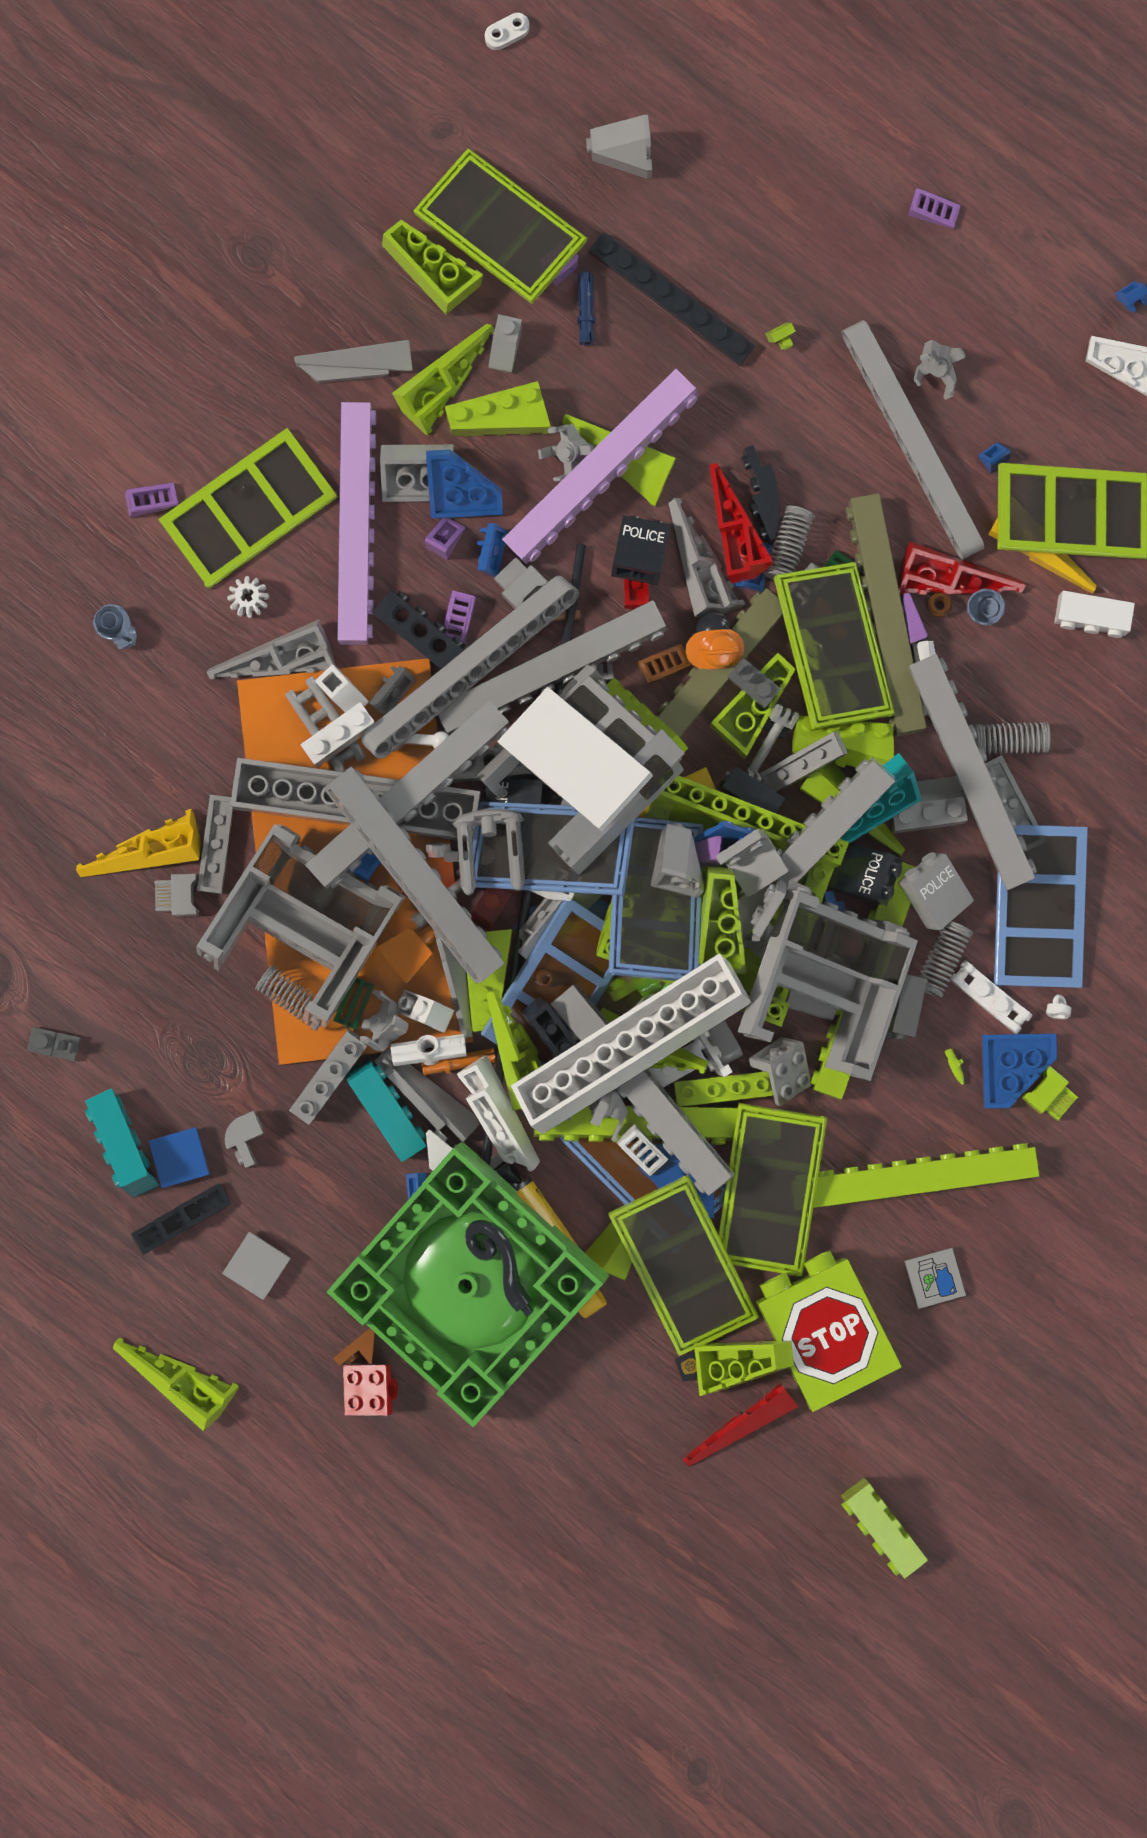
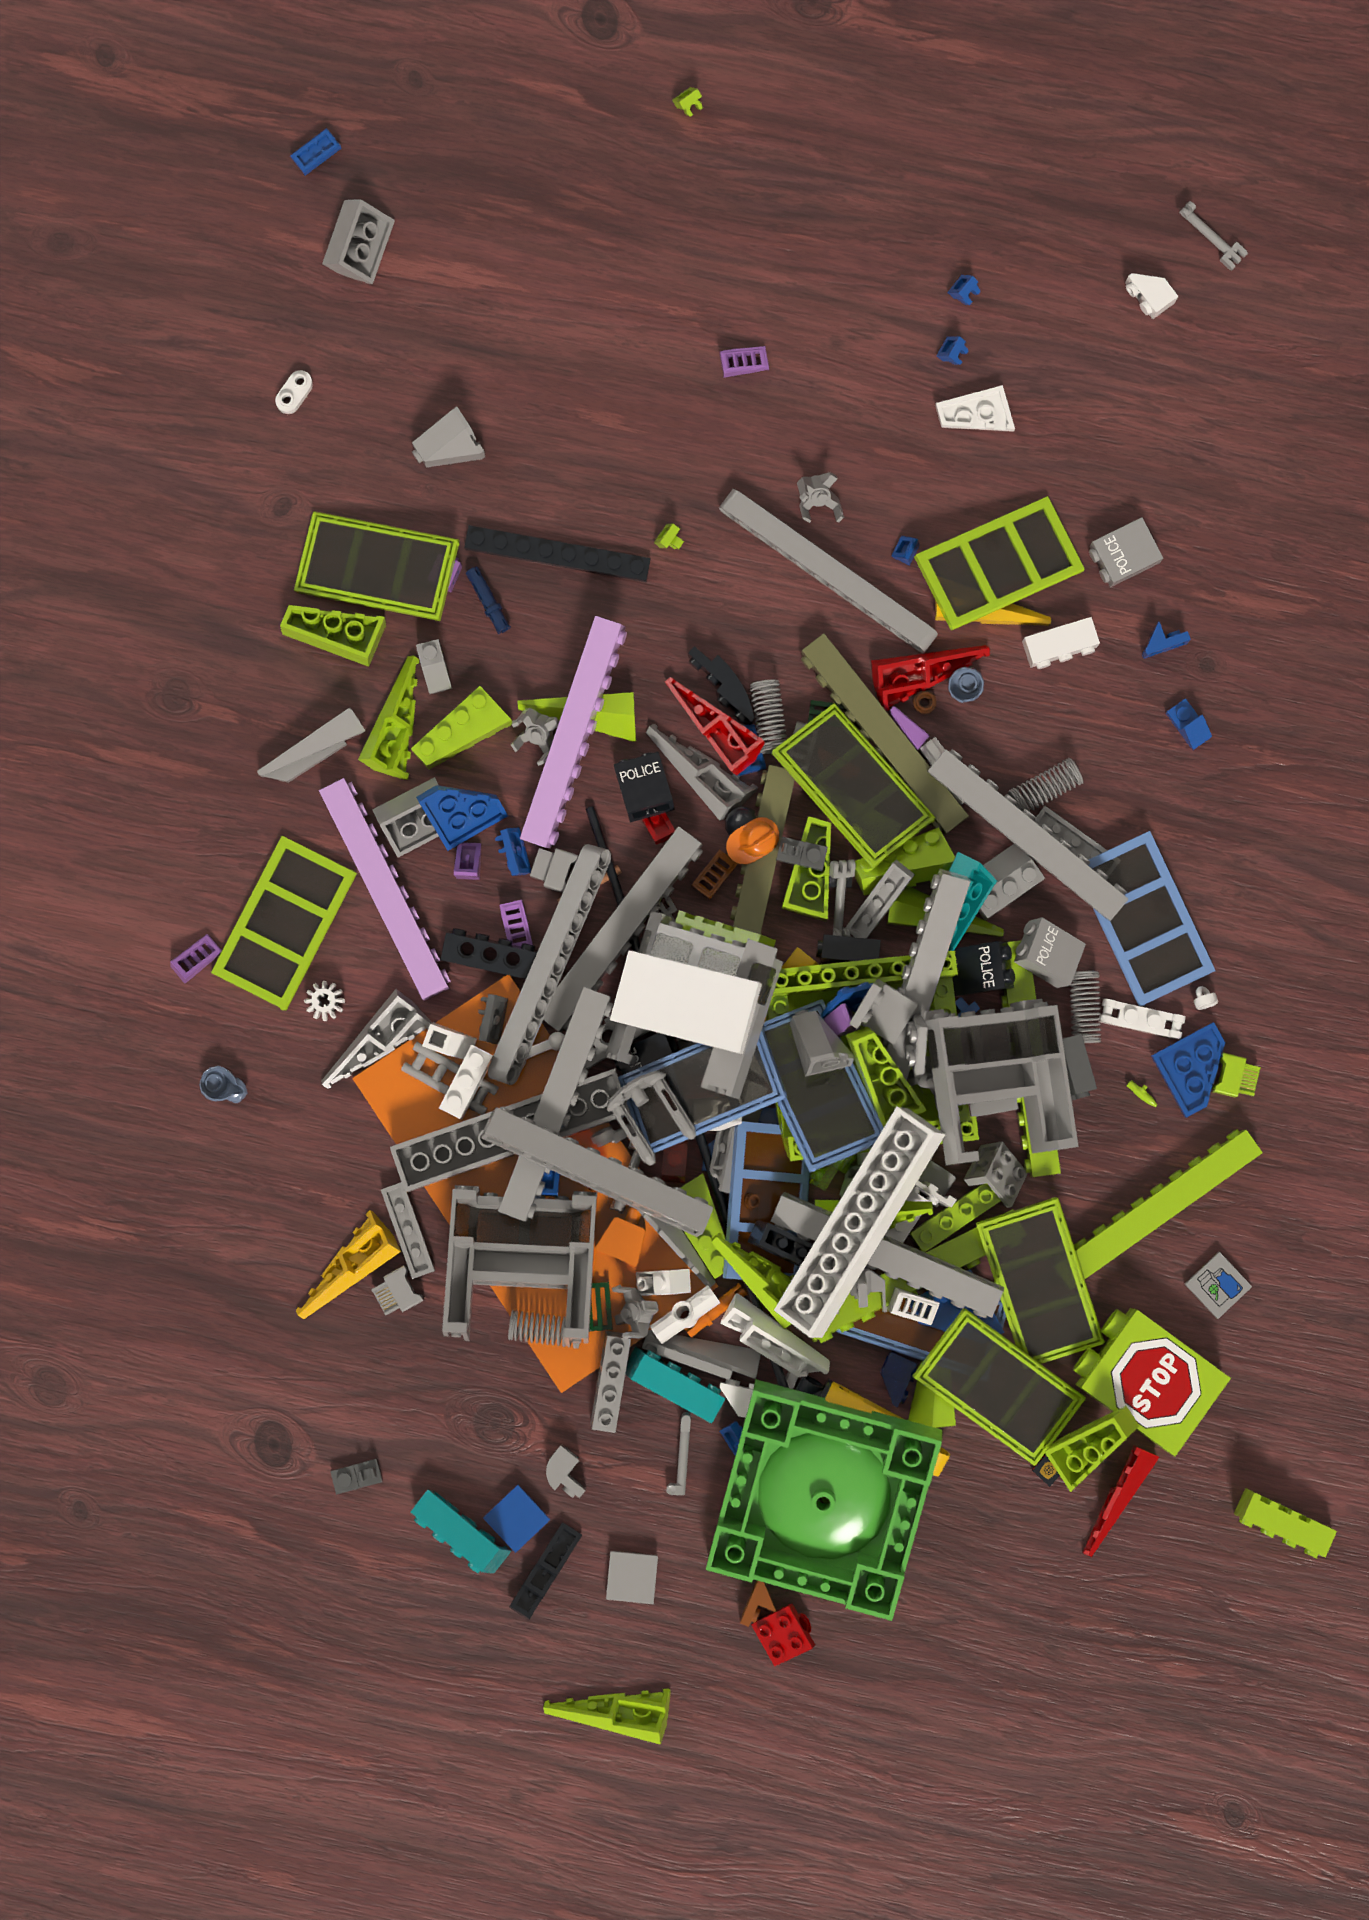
camera: 25 degrees left, 0 degrees up
(342, 1206) = (680, 1487): none -> light grey hinge
(512, 1287) = (866, 1485): black plant -> none
(593, 1207) = (896, 1375): none -> clear blue slope

